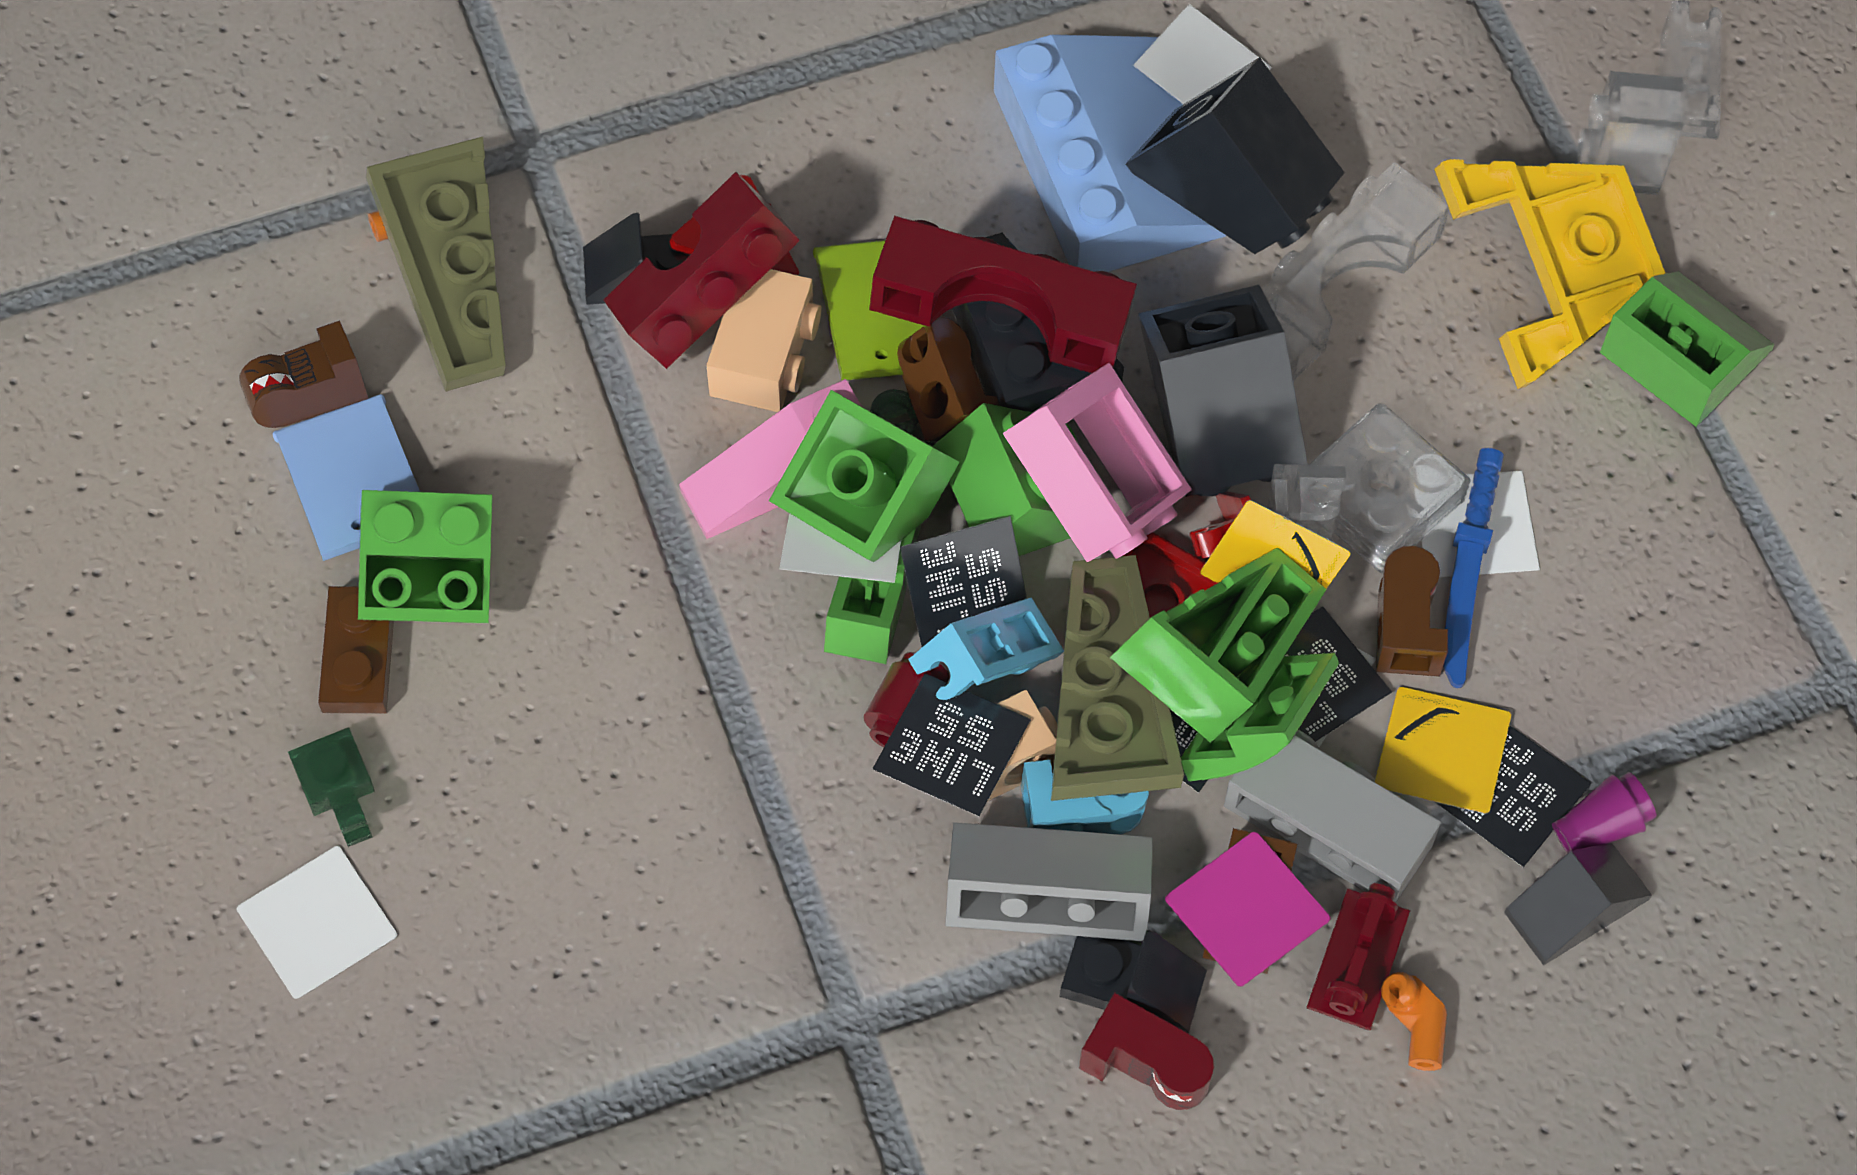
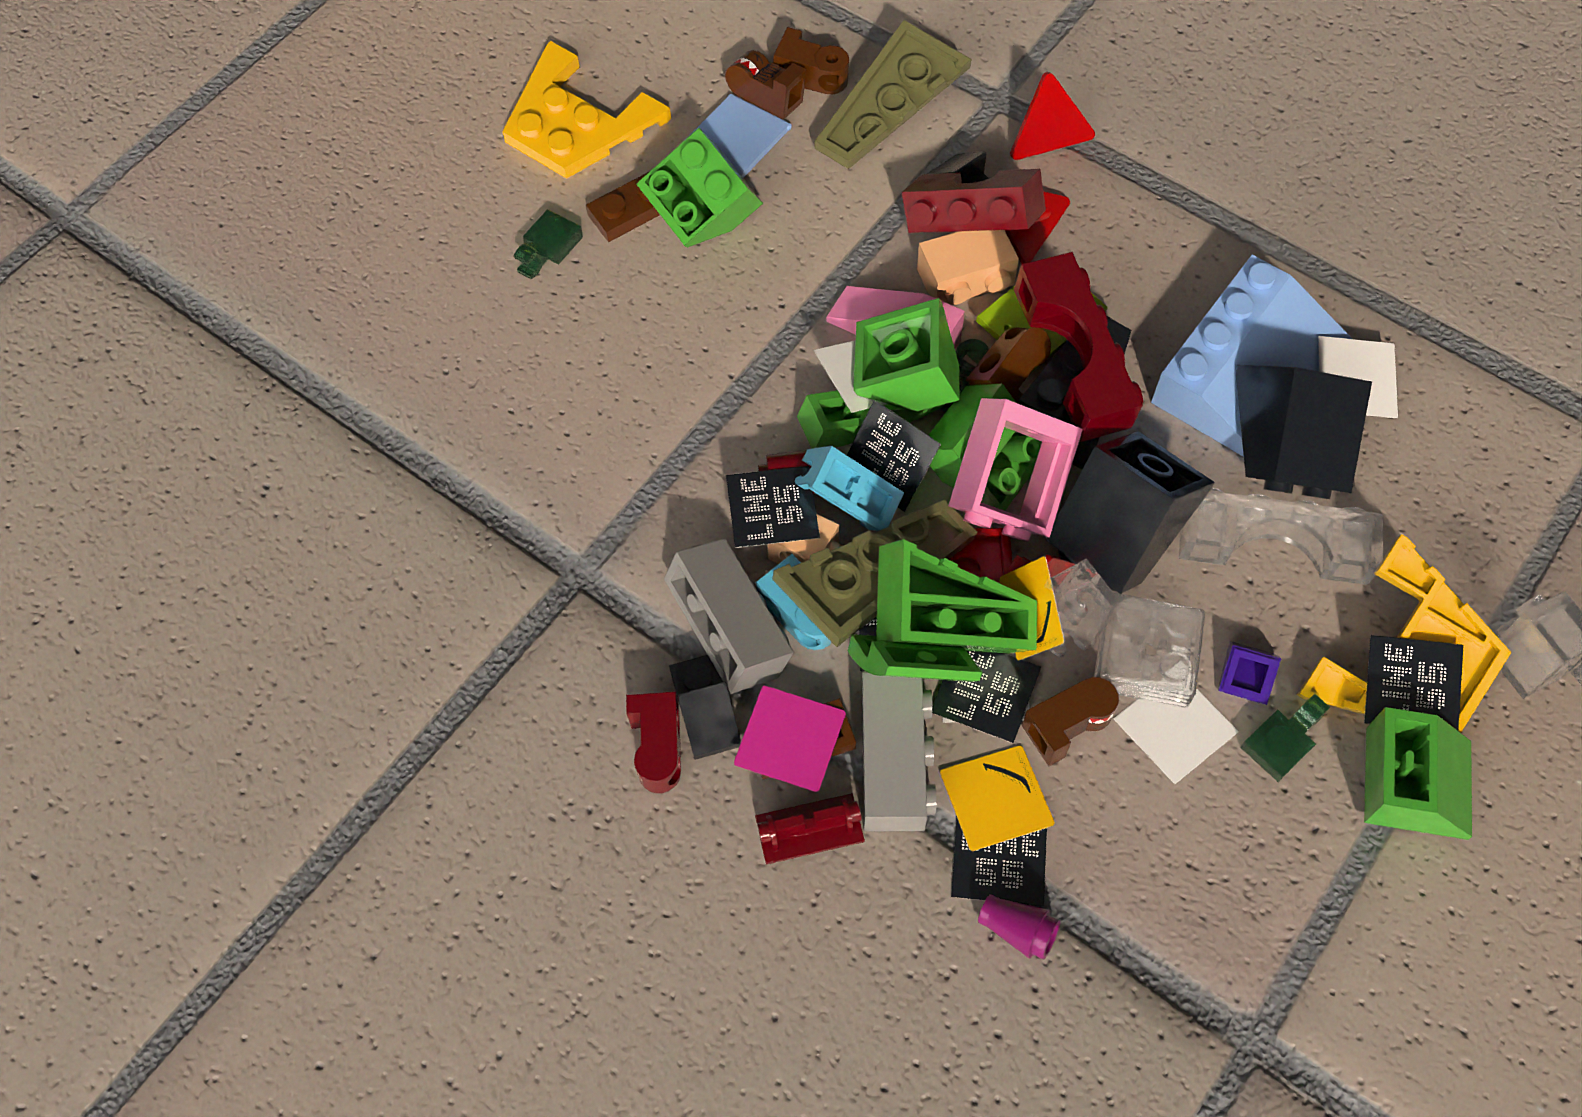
camera: 60 degrees right, 0 degrees up
(157, 660) = (567, 130): none -> yellow wing
(316, 922) = (466, 285): white sticker -> none
(337, 294) = (825, 65): none -> reddish brown leg
(635, 120) = (1050, 122): none -> red piece
(1421, 1014) = (798, 888): orange arm -> none
(1466, 413) = (1249, 672): none -> dark purple slope
(1472, 540) = (1156, 727): blue sword -> none
(1563, 438) = (1283, 741): none -> clear green plate
(1576, 900) = (950, 943): black slope -> none
(1588, 272) = (1414, 677): none -> black sticker

